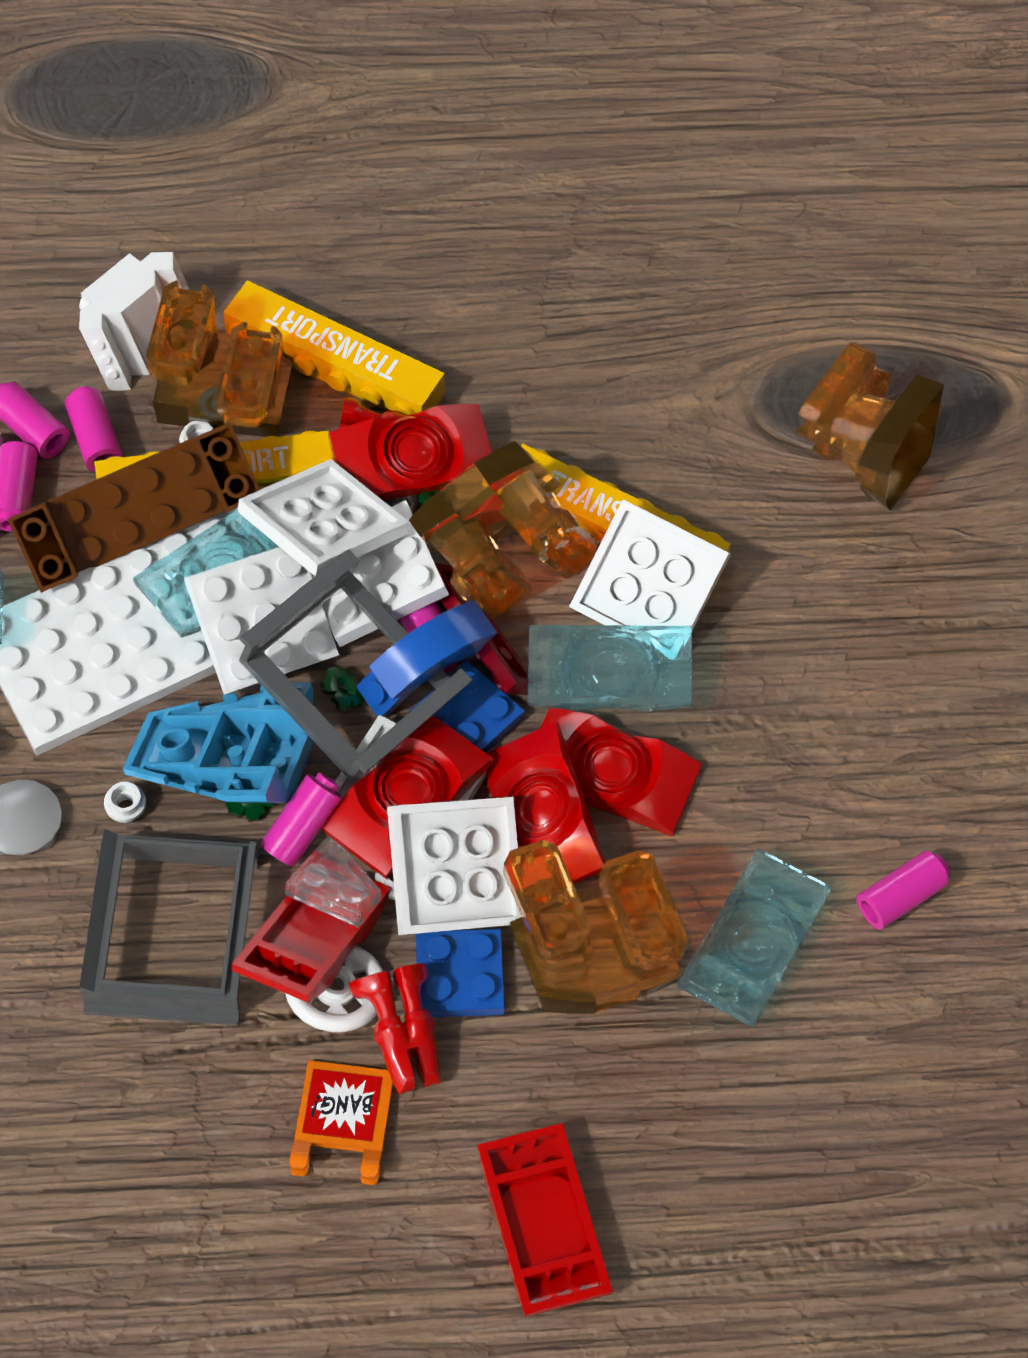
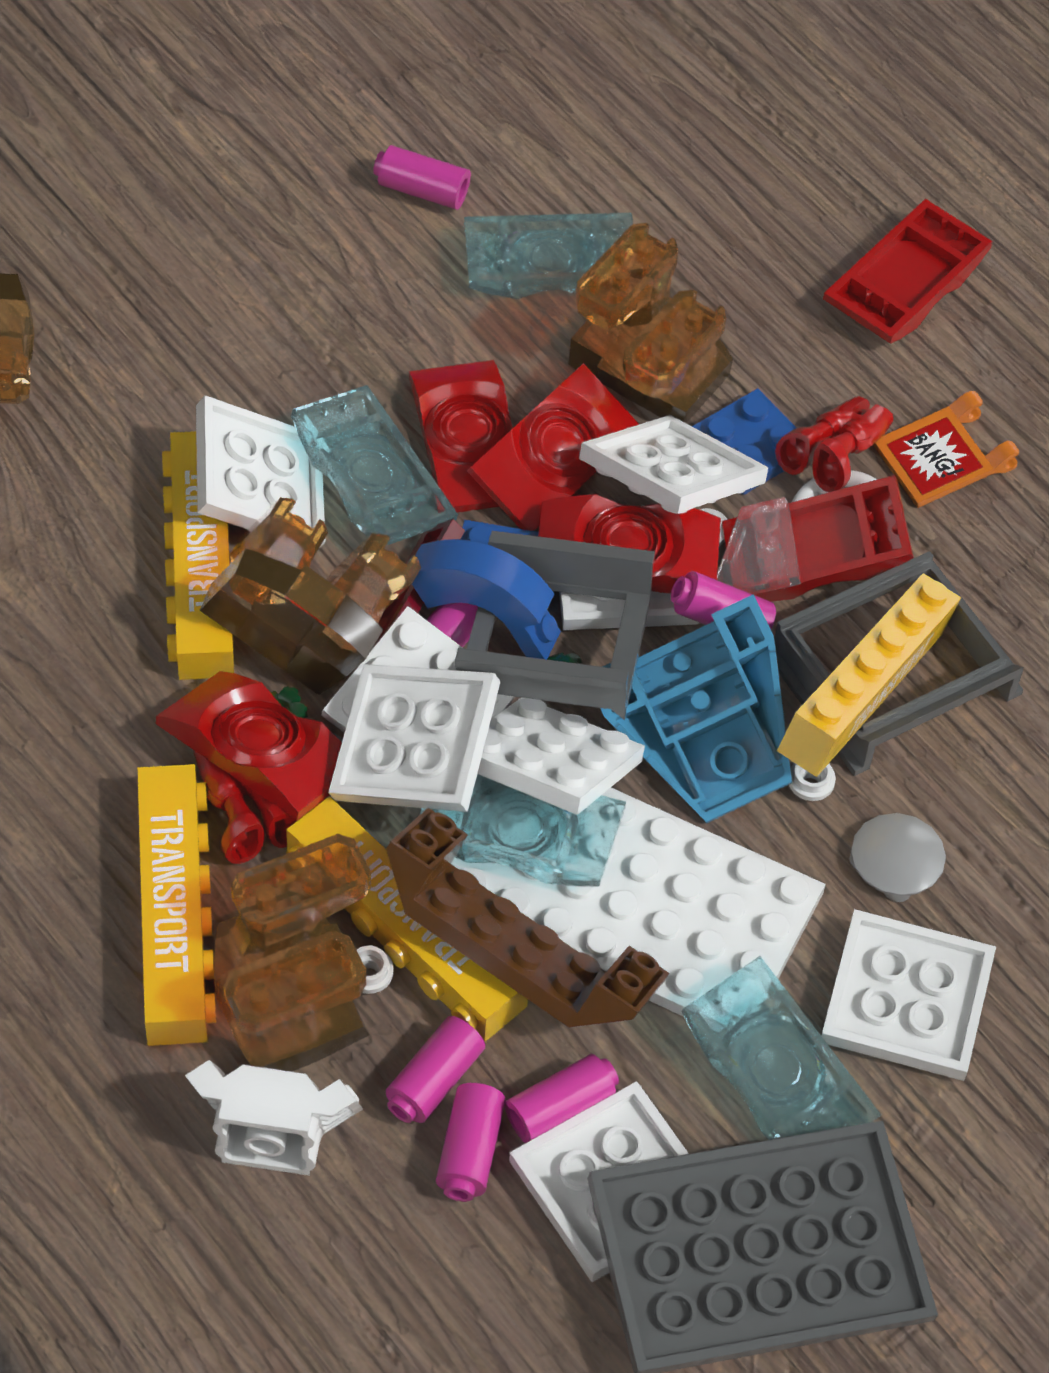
camera: 125 degrees left, 5 degrees down
(152, 858) = (868, 675): none -> yellow brick

